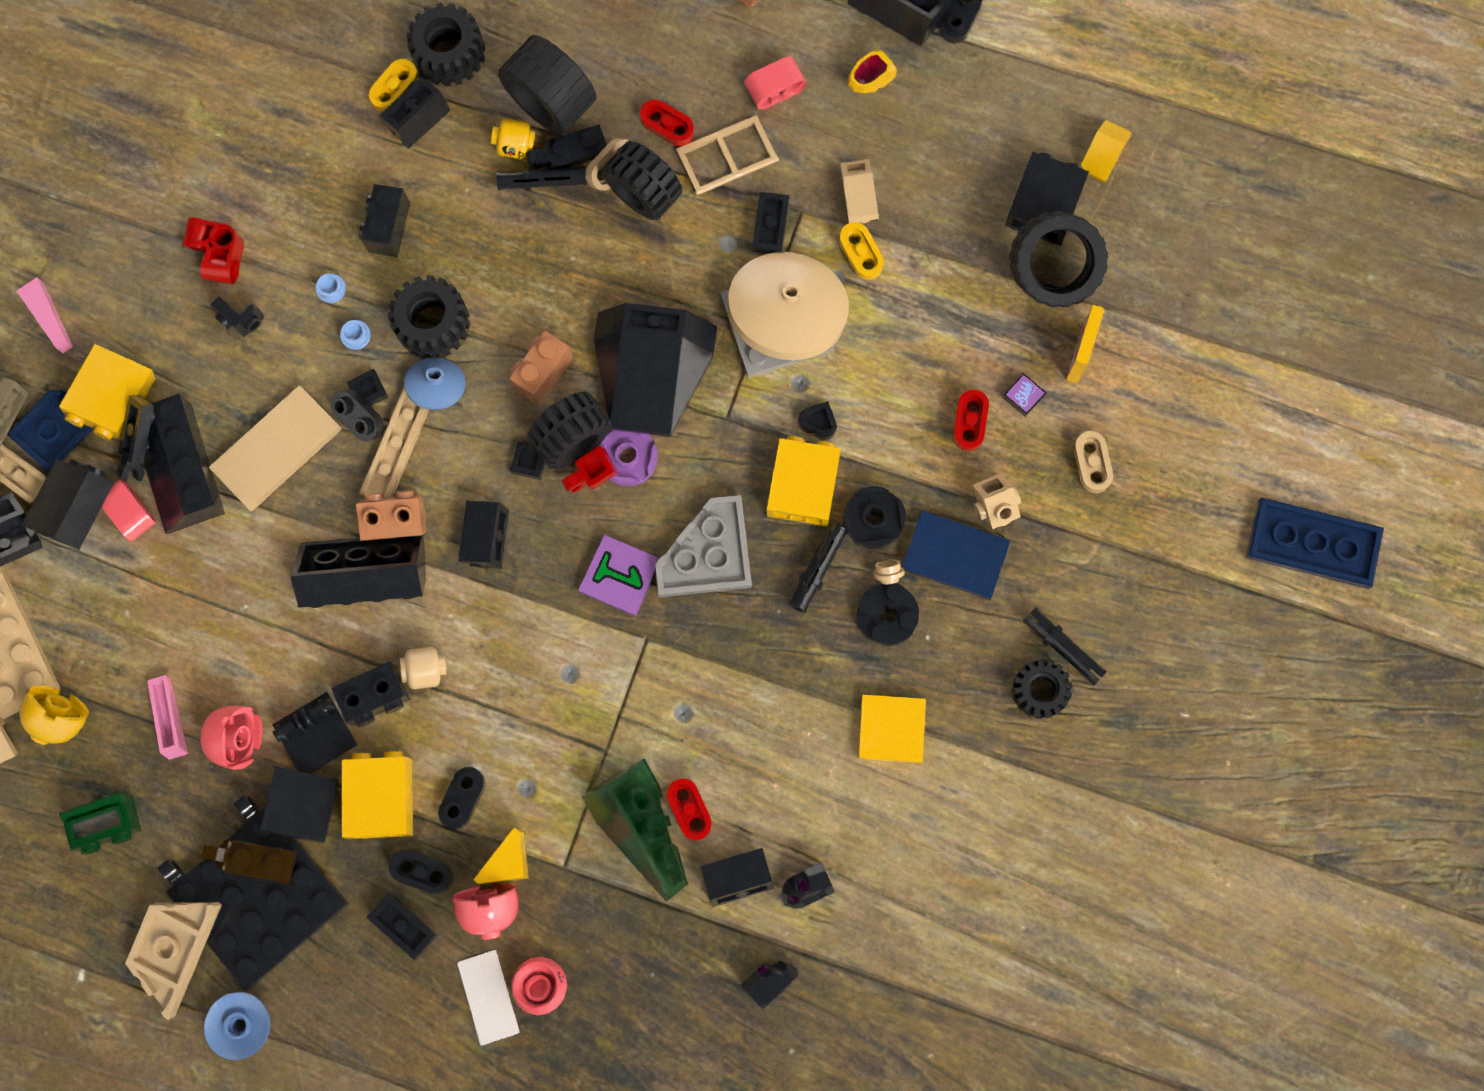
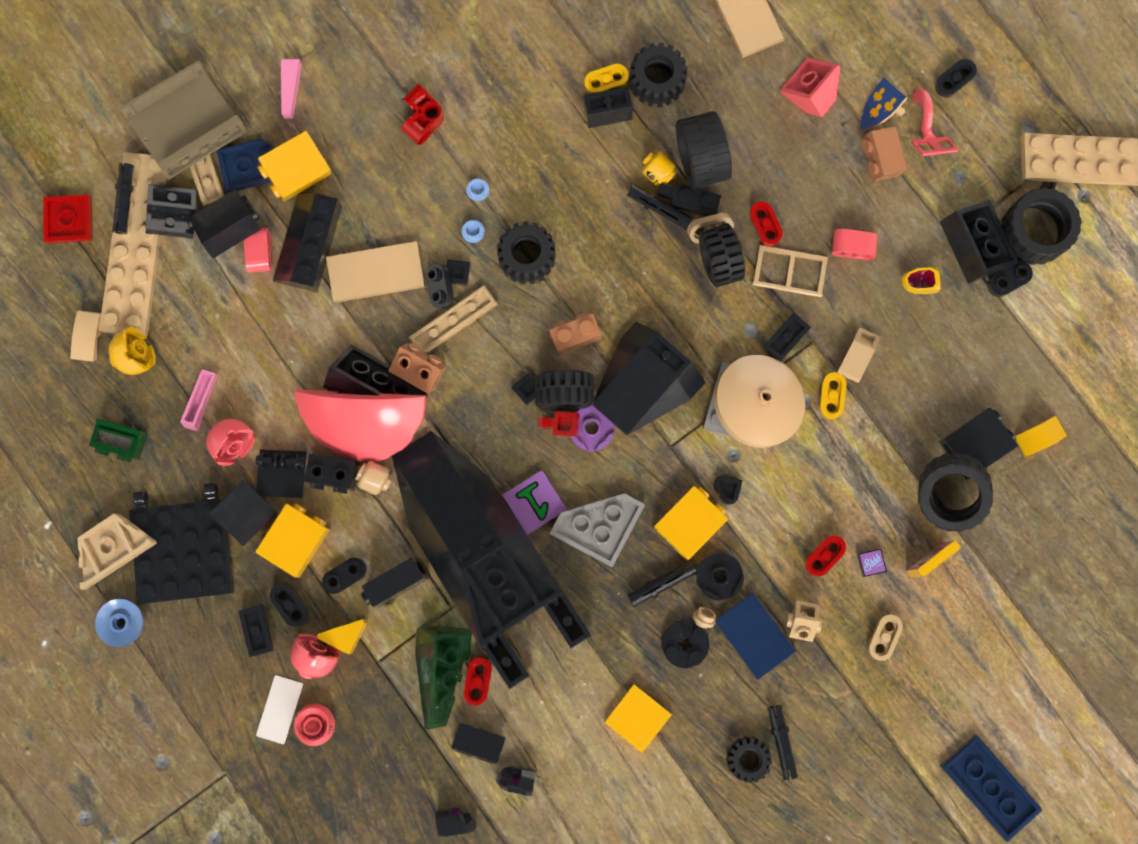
camera: 30 degrees right, 5 degrees up
(134, 437) = (292, 208): black plate -> none
(244, 323) = (401, 166): black bracket -> none
(253, 860) = (193, 528): dark brown hinge -> none
(369, 616) = (361, 425): none -> coral brick
(385, 220) = (540, 168): black brick -> none
(435, 393) = (495, 304): medium blue dish -> none
(483, 534) = (467, 418): black hinge -> none
(522, 763) = (393, 583): none -> black brick
(597, 665) = (479, 551): none -> black piece

